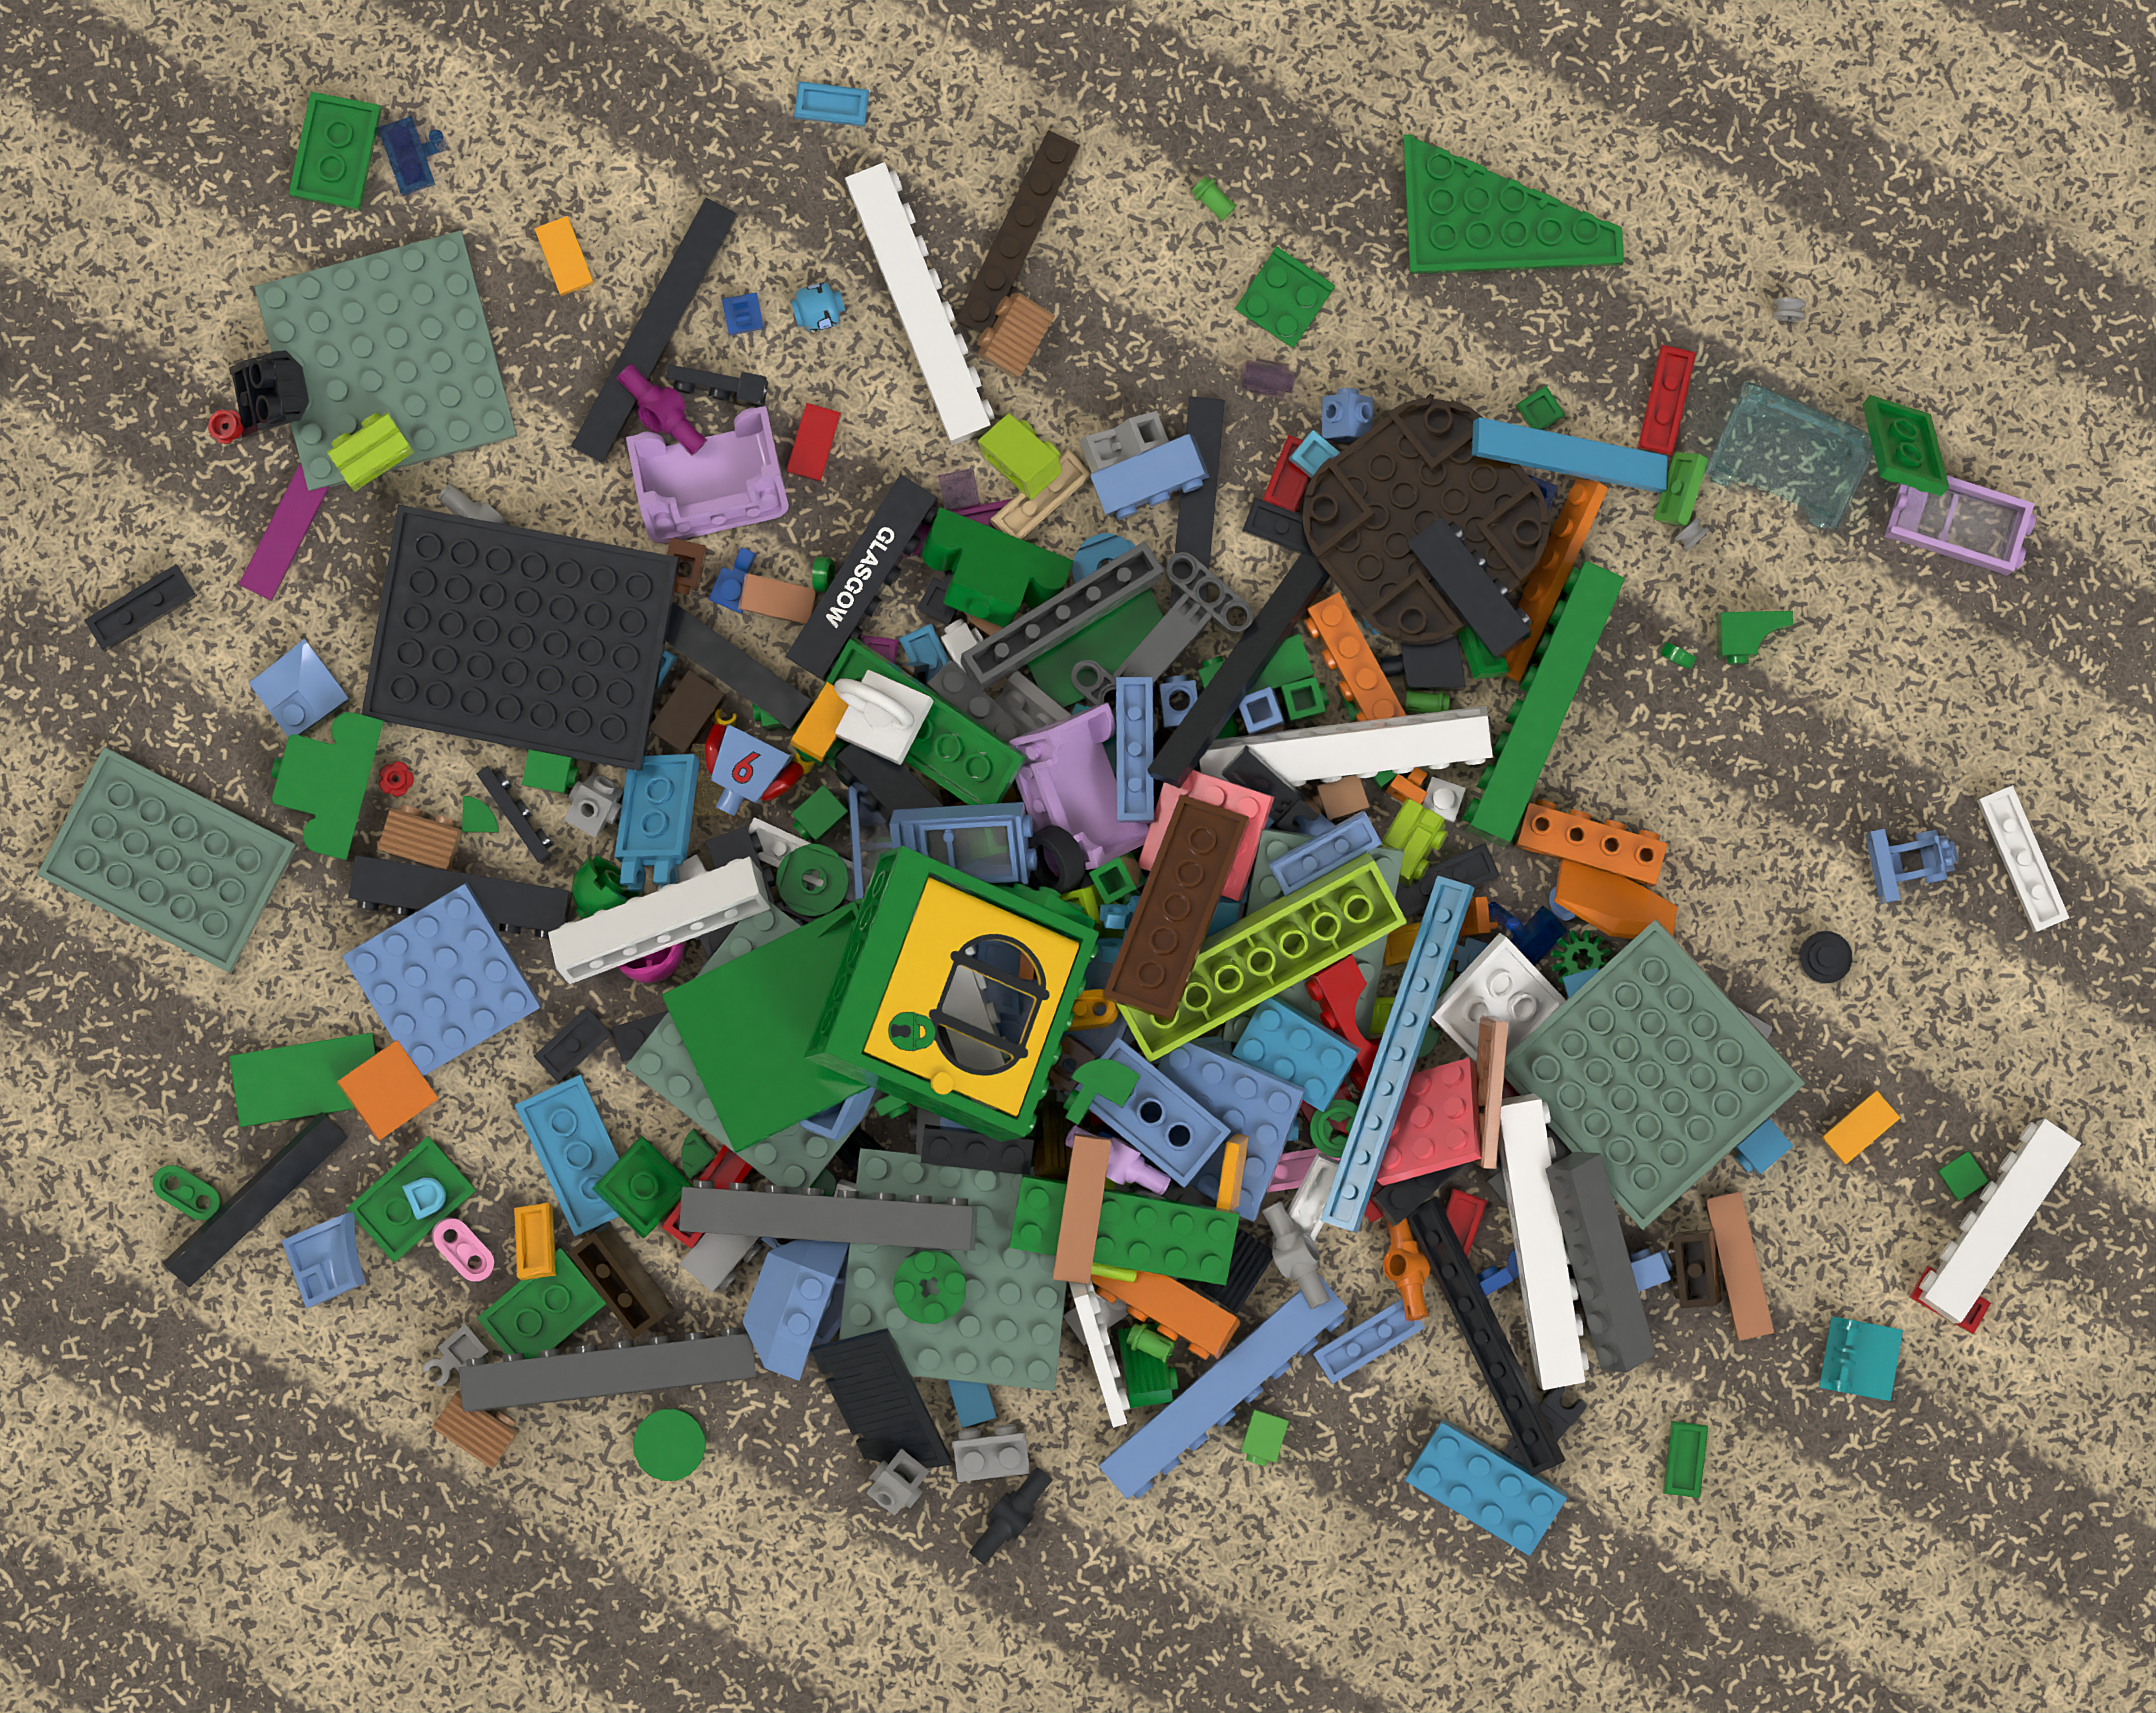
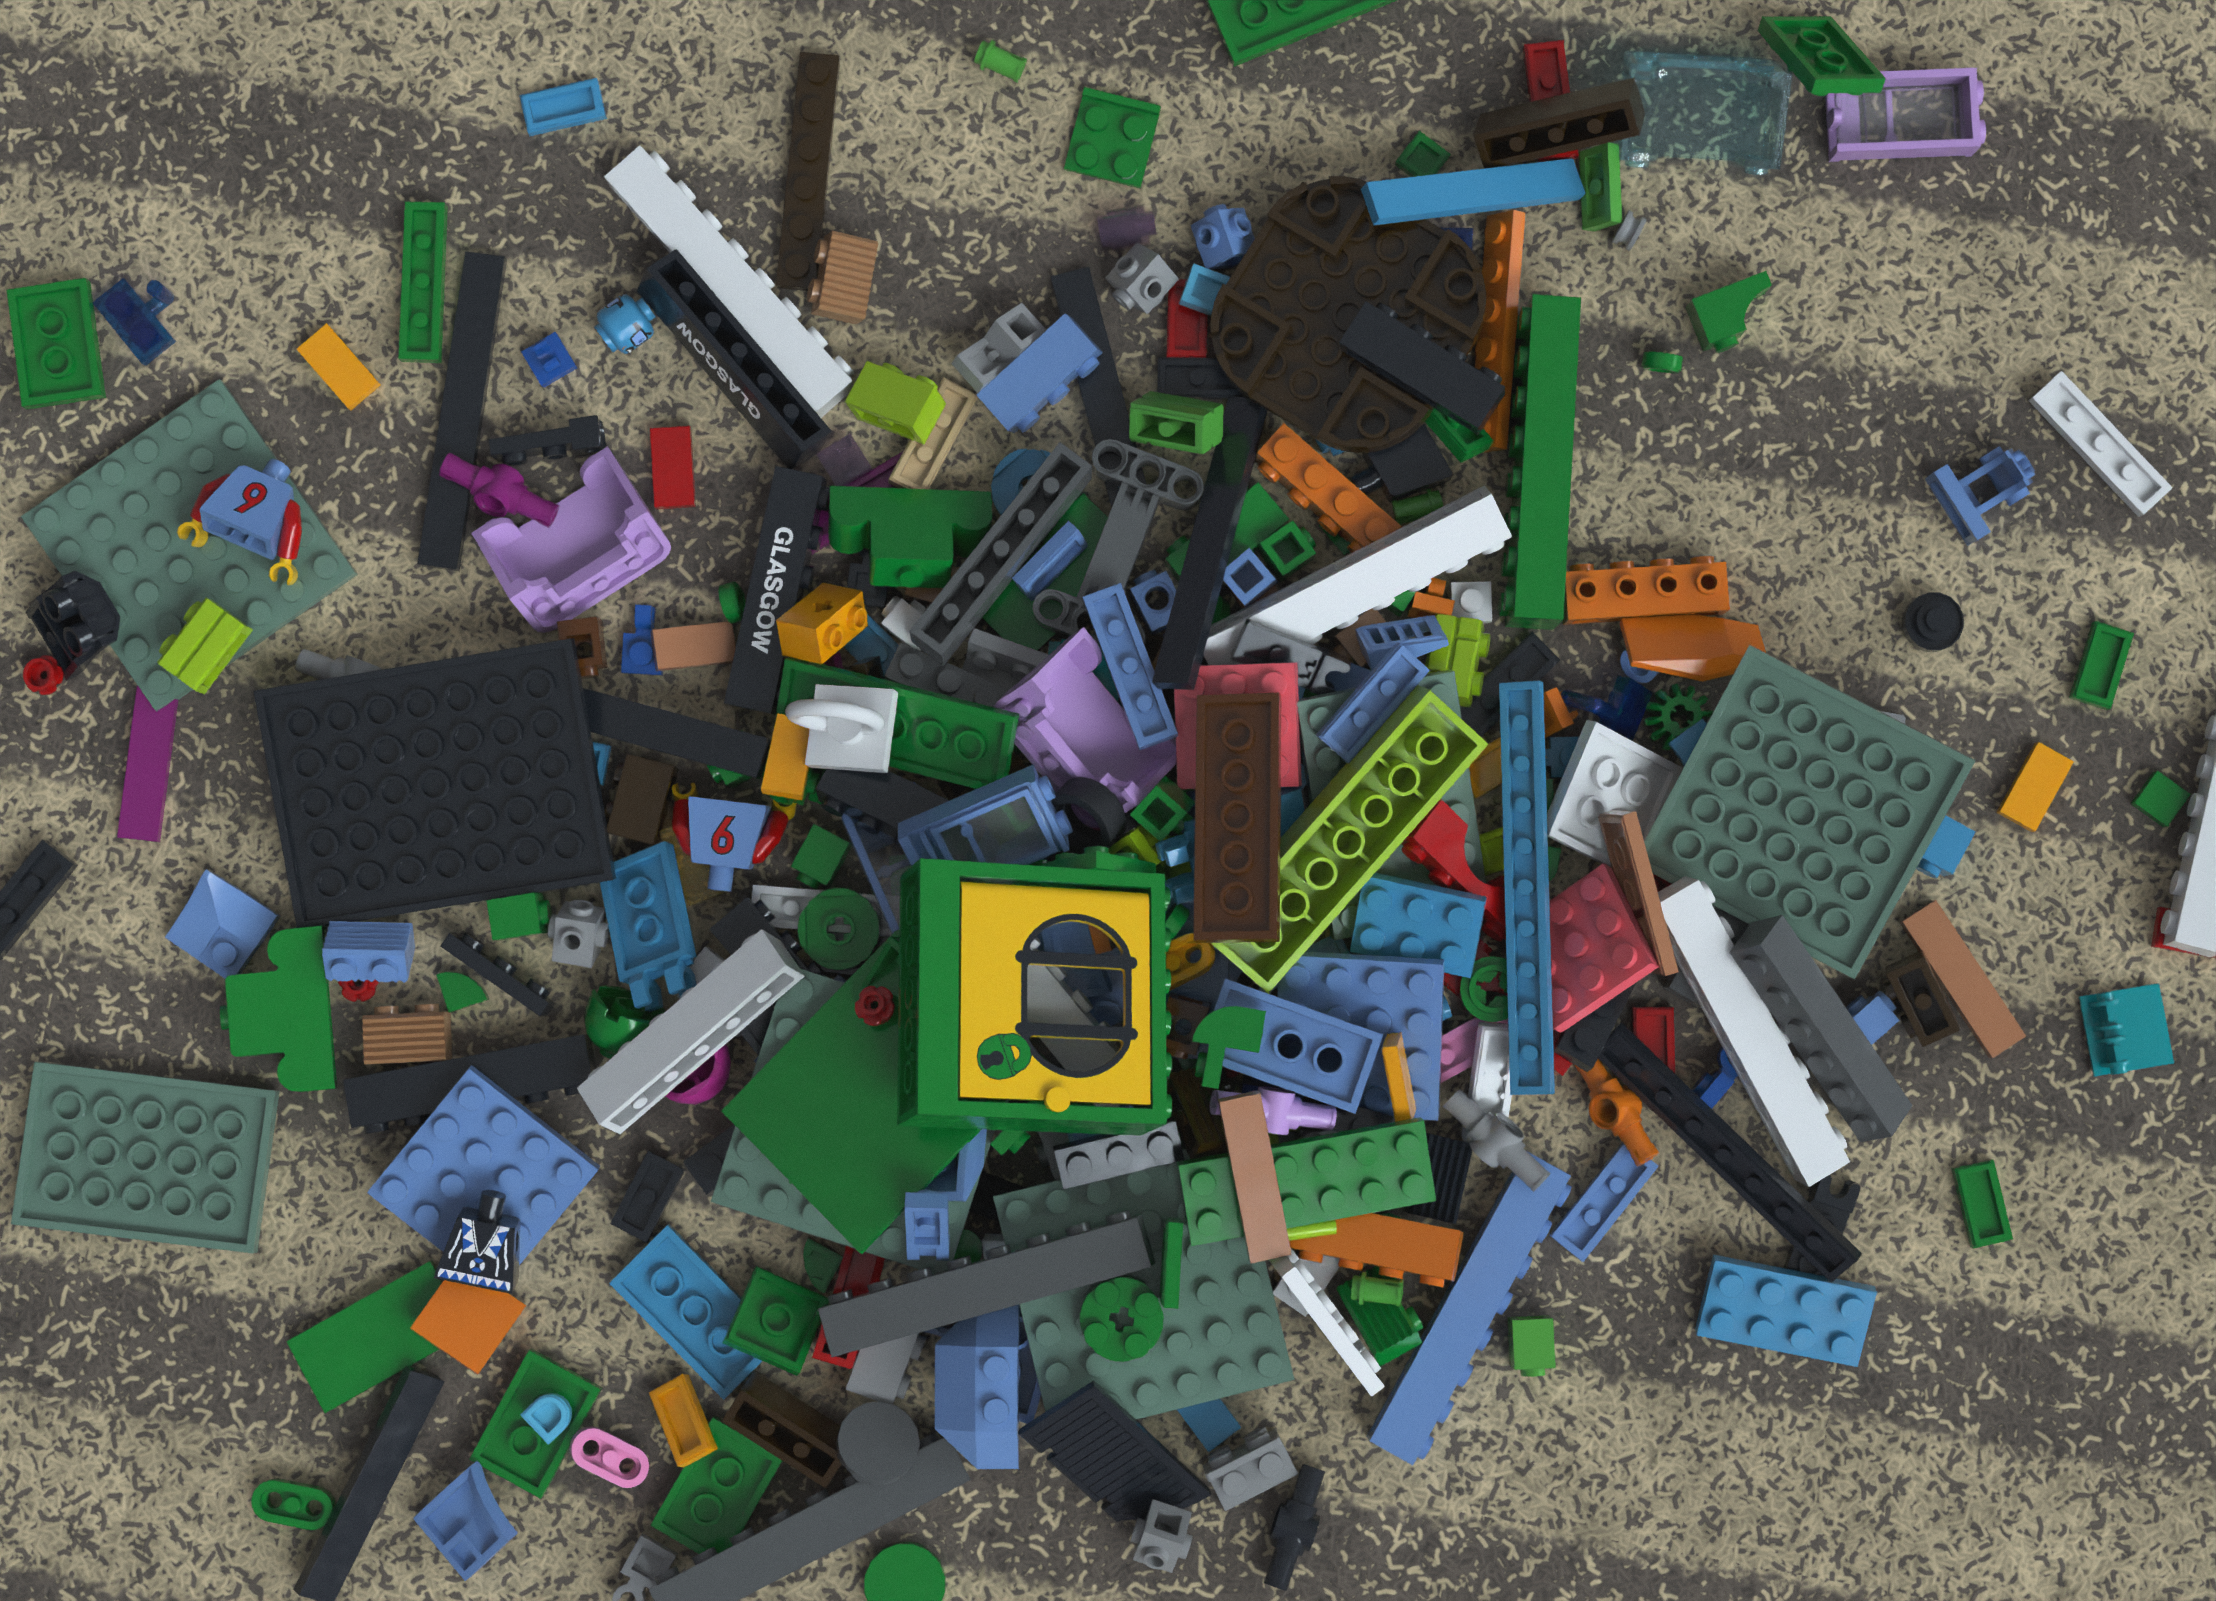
camera: 15 degrees left, 0 degrees up
(414, 756) = (368, 951): none -> medium blue brick
(423, 1035) = (483, 1247): none -> torso
(449, 354) = (252, 512): none -> medium blue torso
(660, 210) = (423, 282): none -> green plate
(690, 1317) = (877, 1443): none -> dark grey tile
(797, 1149) = (927, 1225): none -> medium blue plate
(823, 962) = (885, 1005): none -> red plate
(891, 619) = (822, 623): none -> light orange brick
(897, 371) = (733, 360): none -> black brick
(987, 1254) = (1171, 1262): none -> green tile
(1095, 973) = (1175, 918): none -> green tile
(1101, 637) = (1050, 561): none -> medium blue tile
(1249, 558) = (1176, 422): none -> bright green brick
(1264, 427) = (1141, 279): none -> light grey brick
(1352, 801) = (1379, 638): none -> medium blue slope
(1662, 424) = (1559, 124): none -> dark brown brick
(1955, 1046) = (2101, 665): none -> green tile

